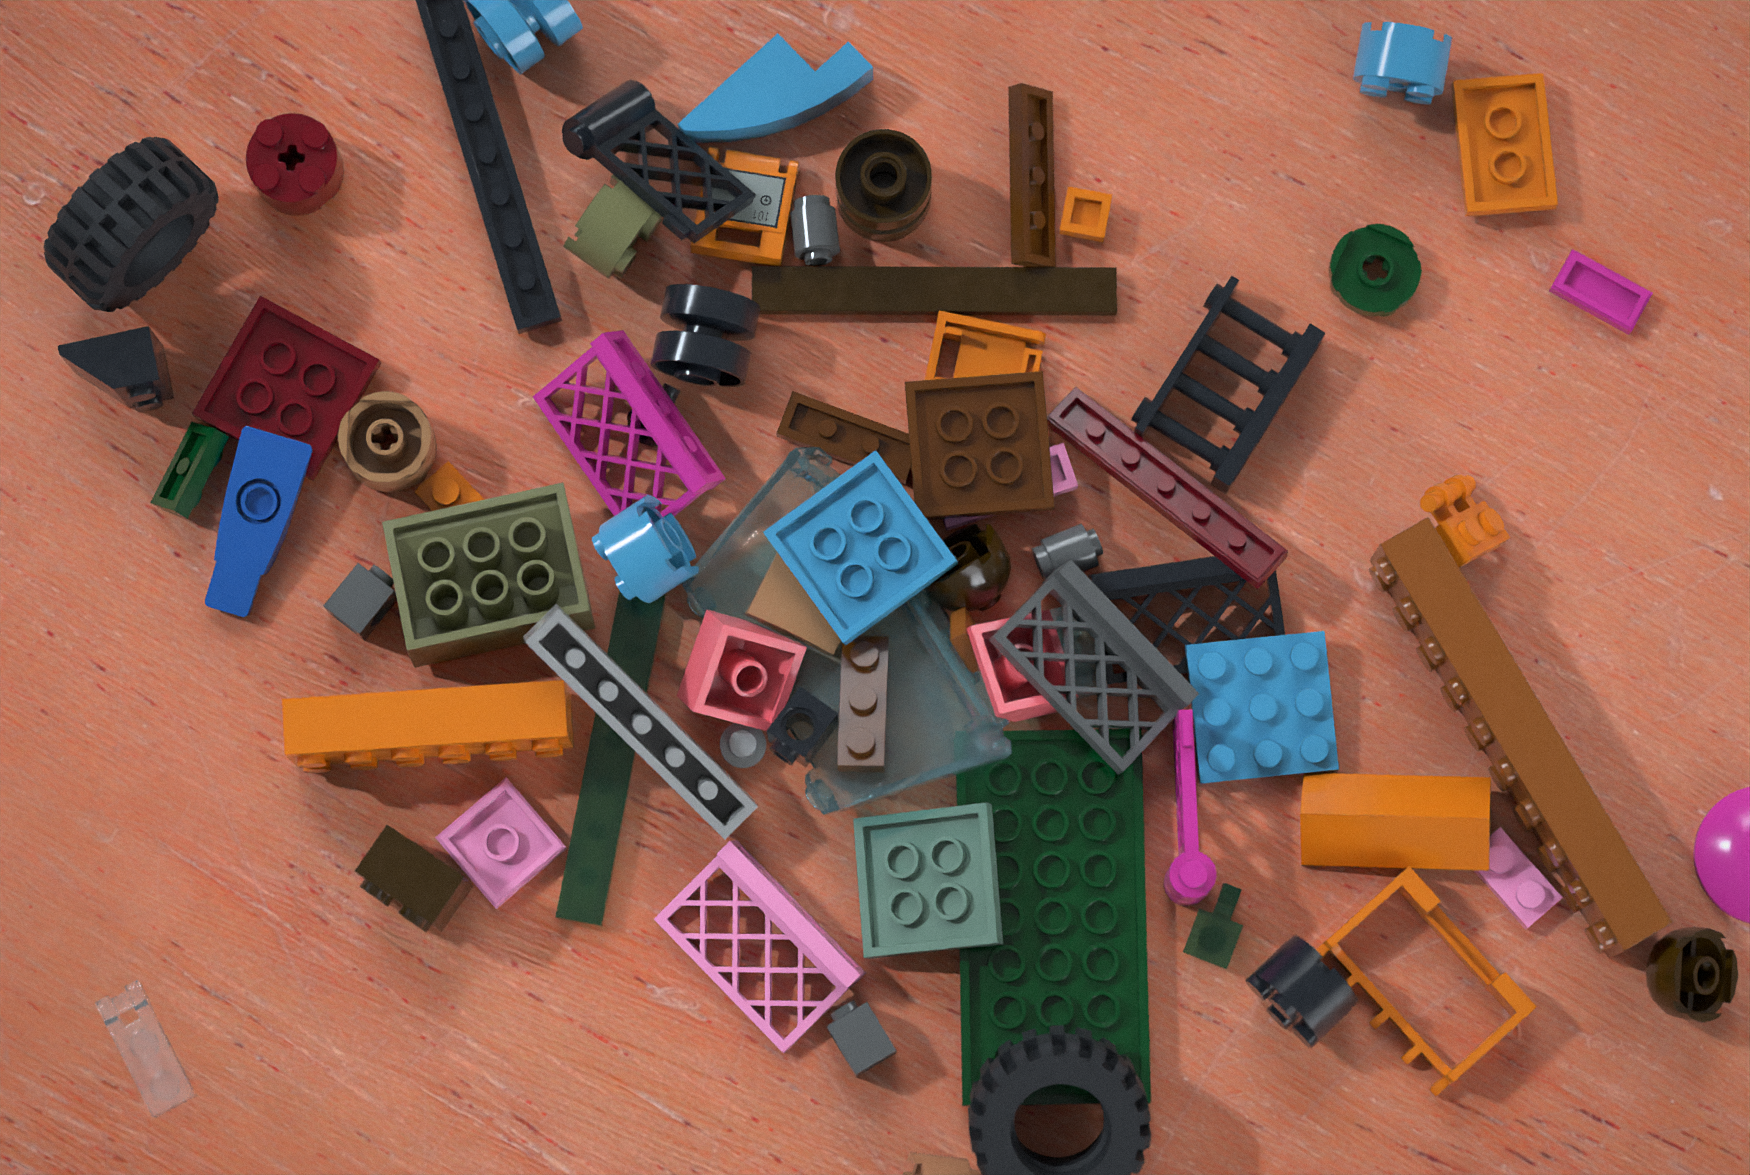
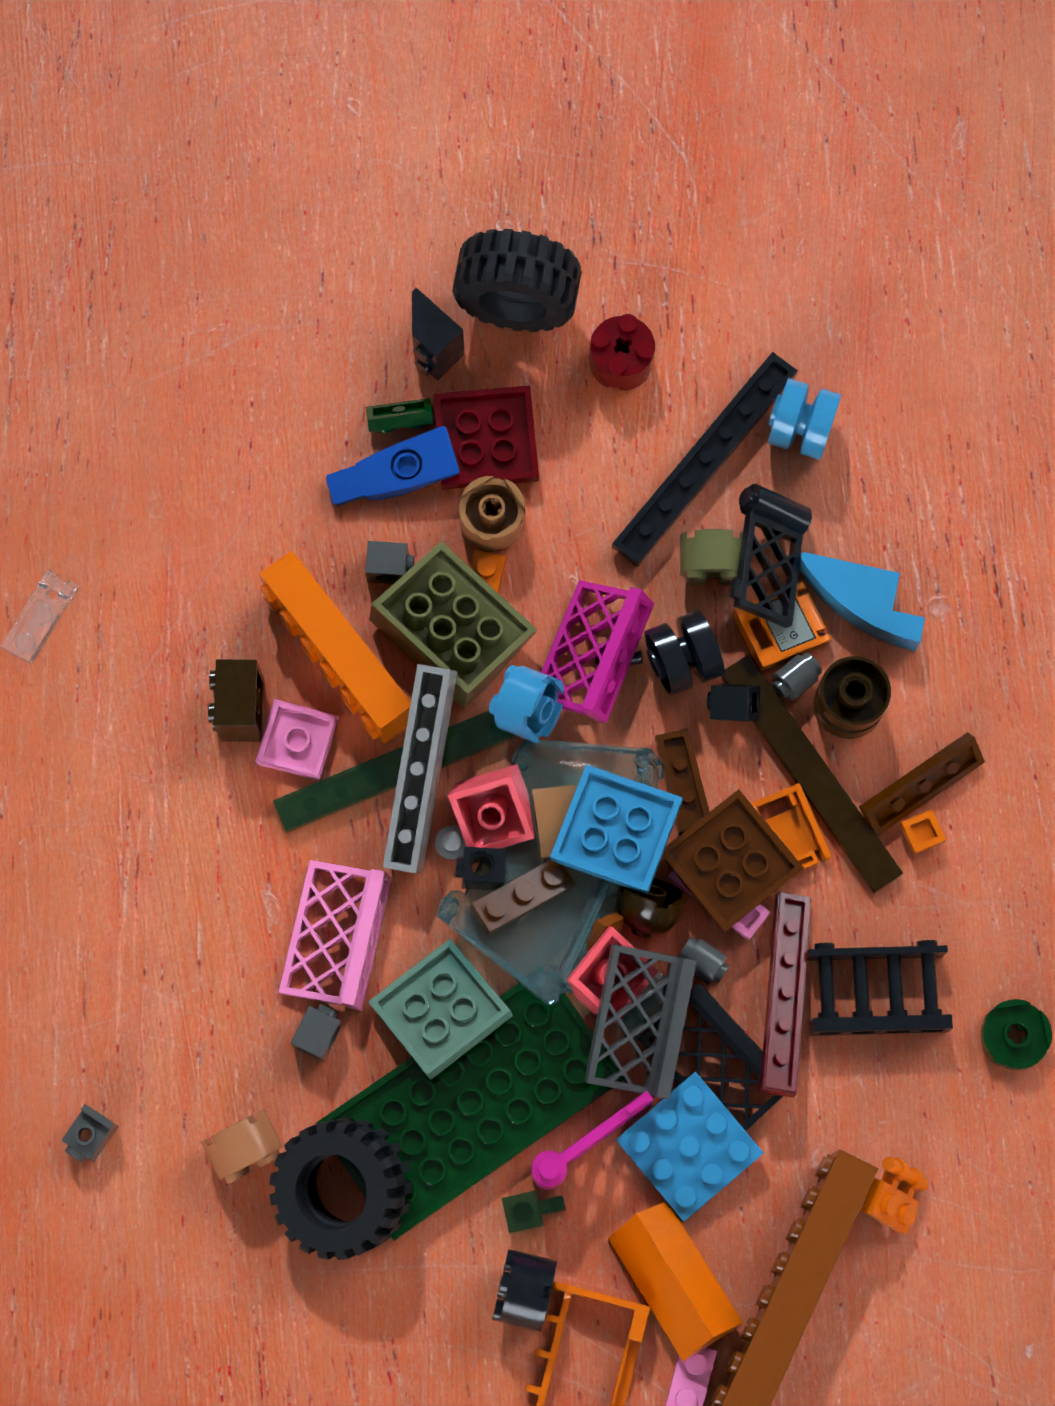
camera: 55 degrees right, 5 degrees down
(799, 319) = (734, 702): none -> black brick

